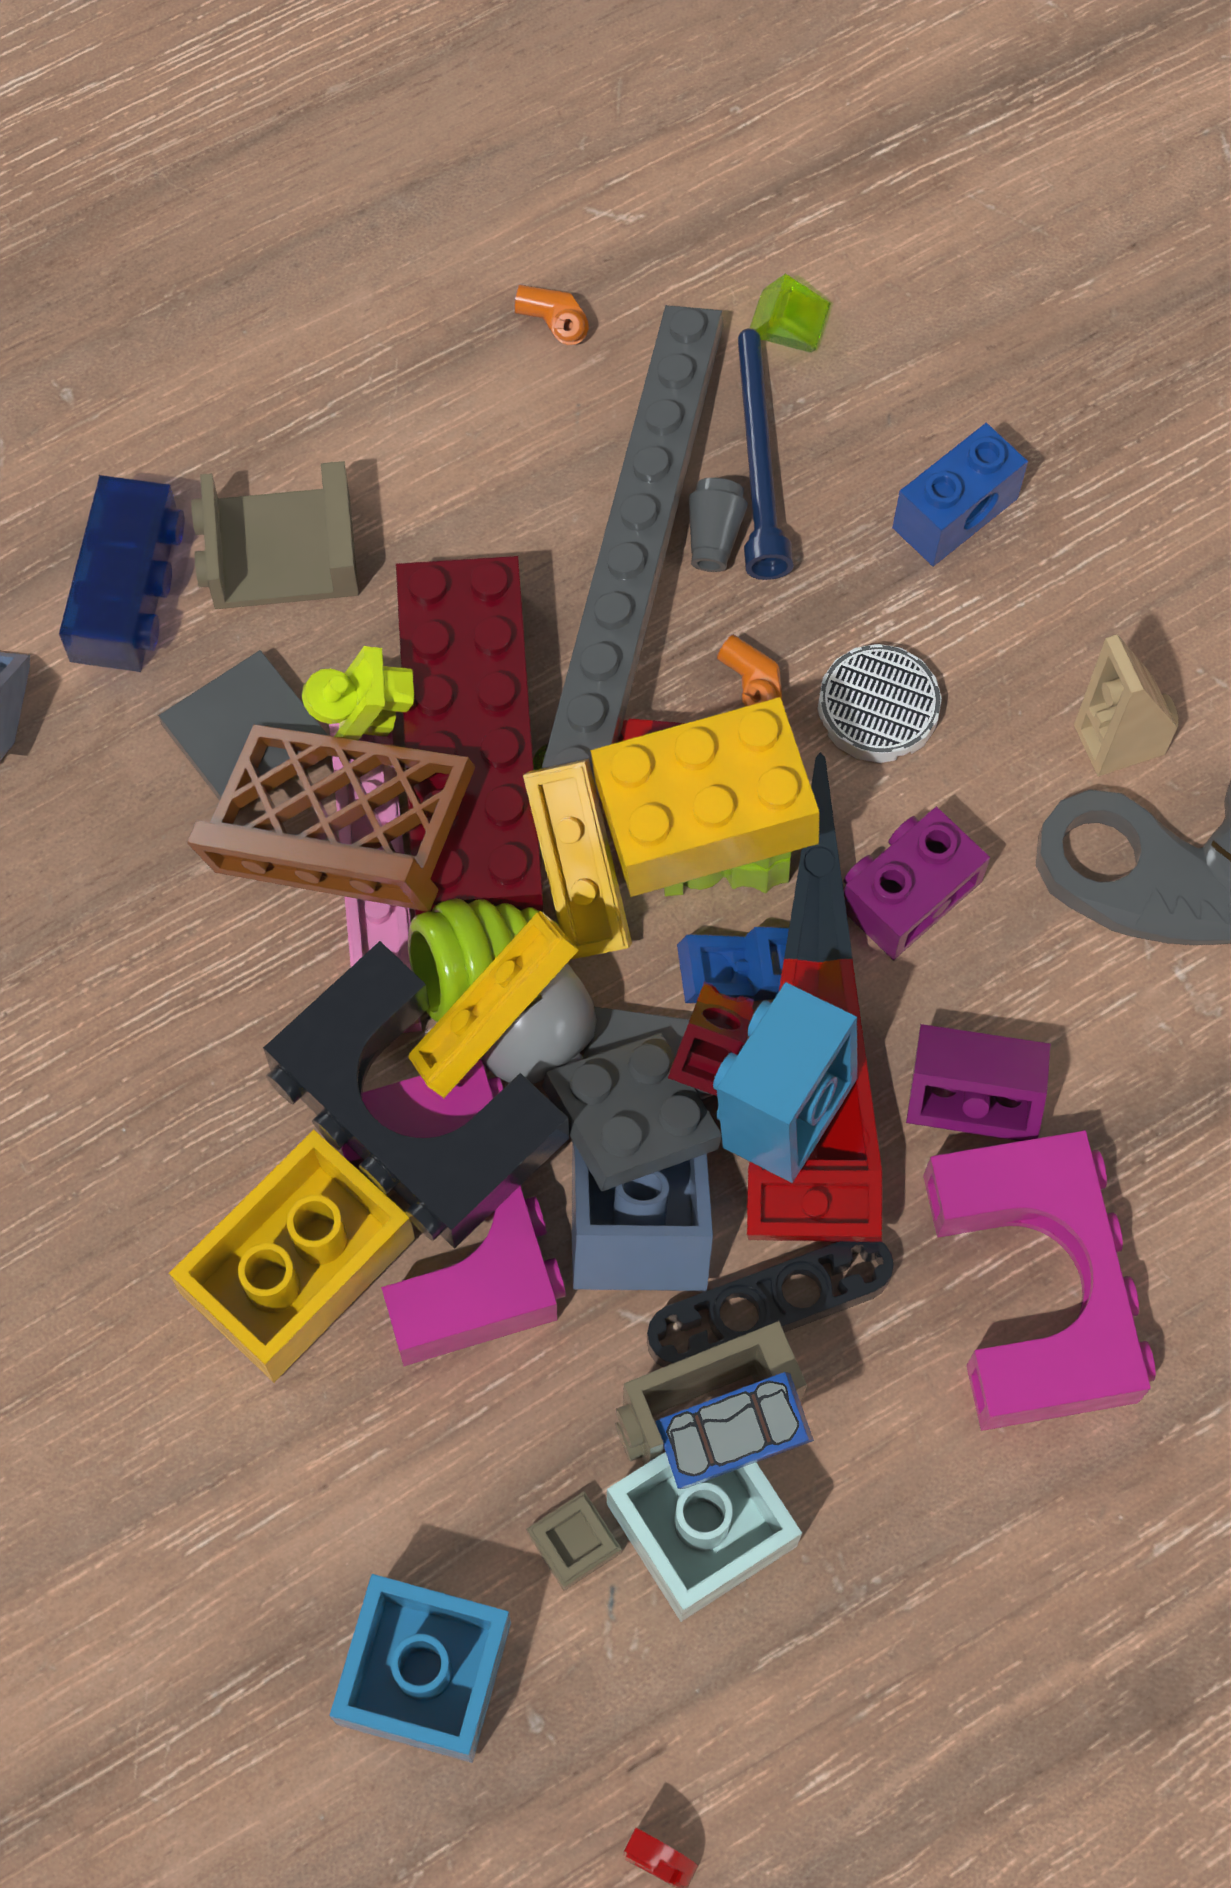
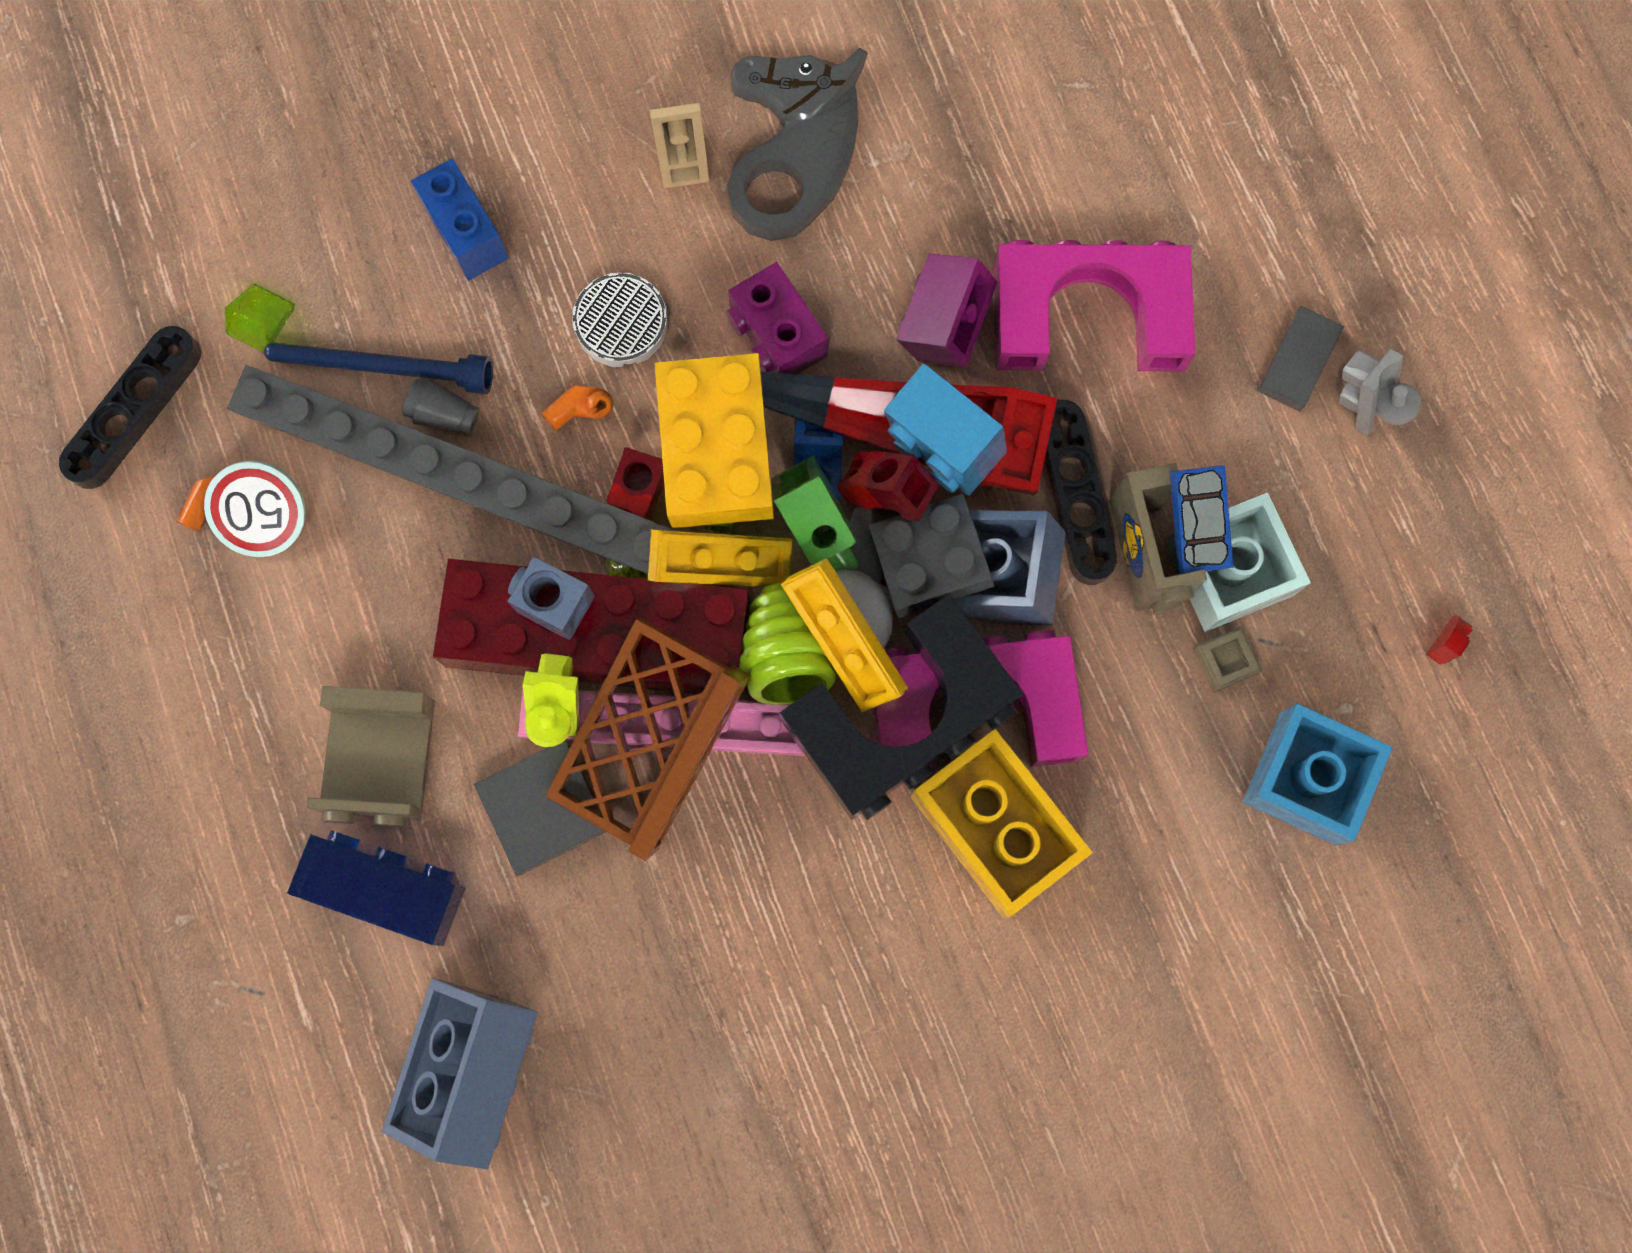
camera: 80 degrees left, 10 degrees up
(474, 685) = (563, 615): none -> sand blue brick
(548, 356) = (255, 508): none -> piece
(653, 204) = (138, 412): none -> black beam
(654, 954) = (809, 502): none -> bright green torso
(997, 1687) = (1376, 389): none -> light grey hips
(1035, 1588) = (1300, 358): none -> dark grey tile

